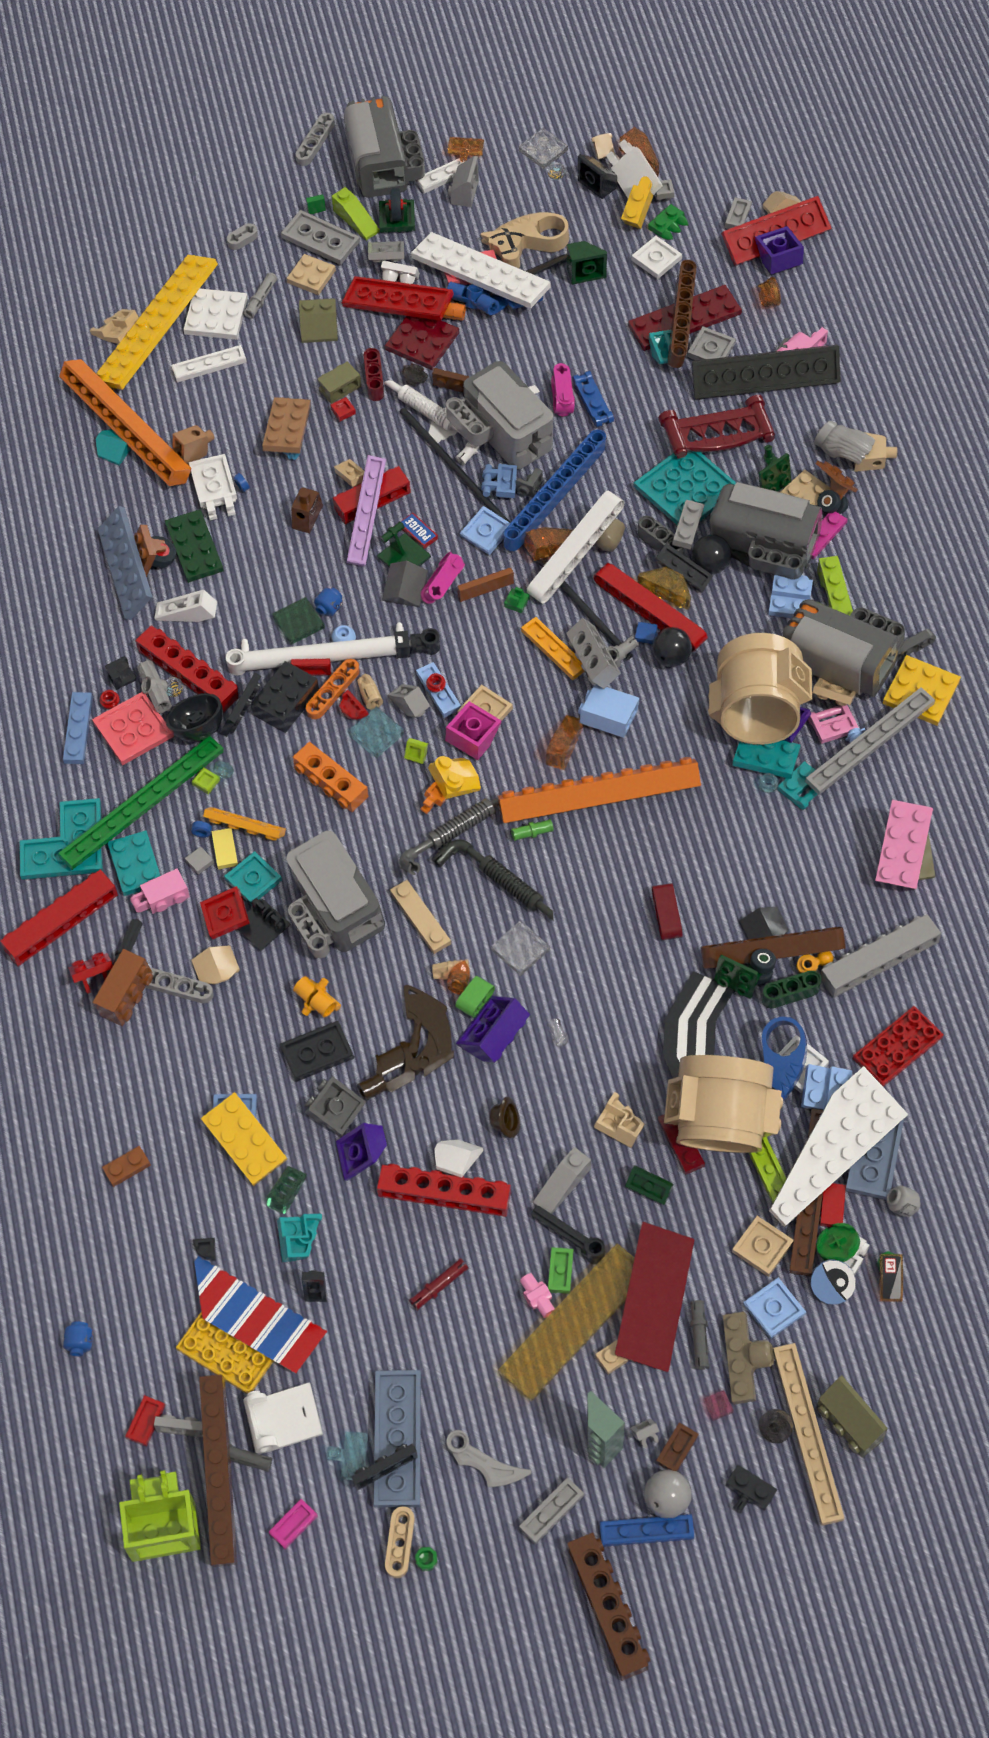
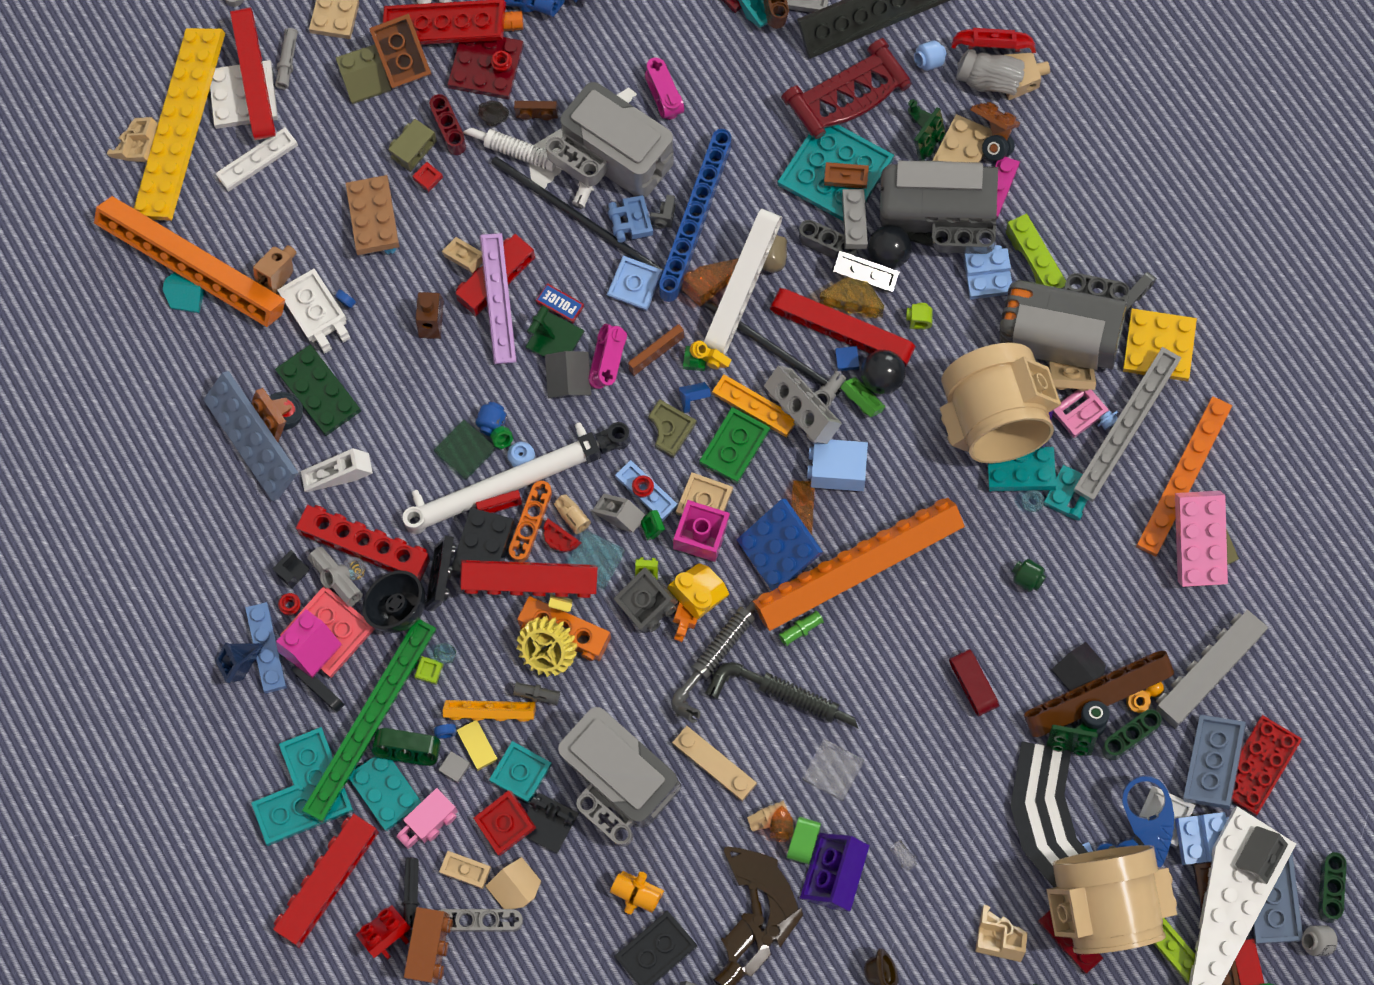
camera: 15 degrees left, 10 degrees up
(50, 729) = (237, 659): none -> dark blue slope
(108, 768) = (319, 689): none -> black beam
(111, 728) = (308, 643): none -> dark pink slope
(164, 831) = (406, 746): none -> dark green beam
(178, 941) = (465, 870): none -> tan plate
(228, 297) = (253, 74): none -> red beam
(289, 821) = (536, 693): none -> dark grey pin
(312, 724) = (528, 577): none -> red brick
(318, 786) = (542, 633): none -> light yellow gear
(332, 618) = (501, 437): none -> green tile
(333, 753) = (560, 603): none -> light yellow tile
(353, 308) = (400, 51): none -> dark orange brick
(407, 772) = (646, 601): none -> dark grey plate
(433, 716) = (652, 525): none -> green tile
(434, 336) = (498, 56): none -> red plate
(478, 648) = (672, 427): none -> olive tile
(503, 624) = (691, 393): none -> blue tile
(526, 674) = (734, 445): none -> green plate
(530, 600) = (713, 357): none -> yellow plate
(535, 756) = (779, 545): none -> blue plate
(592, 399) = (698, 89): blue plate -> none
(648, 664) = (862, 397): none -> bright green plate
(693, 490) = (846, 175): none -> dark orange plate
(719, 614) = (920, 316): none -> lime plate
(744, 839) = (1029, 575): none -> dark green head
(797, 419) = (930, 55): none -> light blue head
(850, 416) = (994, 38): none -> red plate
(857, 1029) = (1214, 761): none -> sand blue plate
(873, 1109) = (1262, 853): none -> dark grey panel
(913, 793) = (1184, 475): none -> orange plate
(926, 1170) = (1337, 877): none -> dark green beam

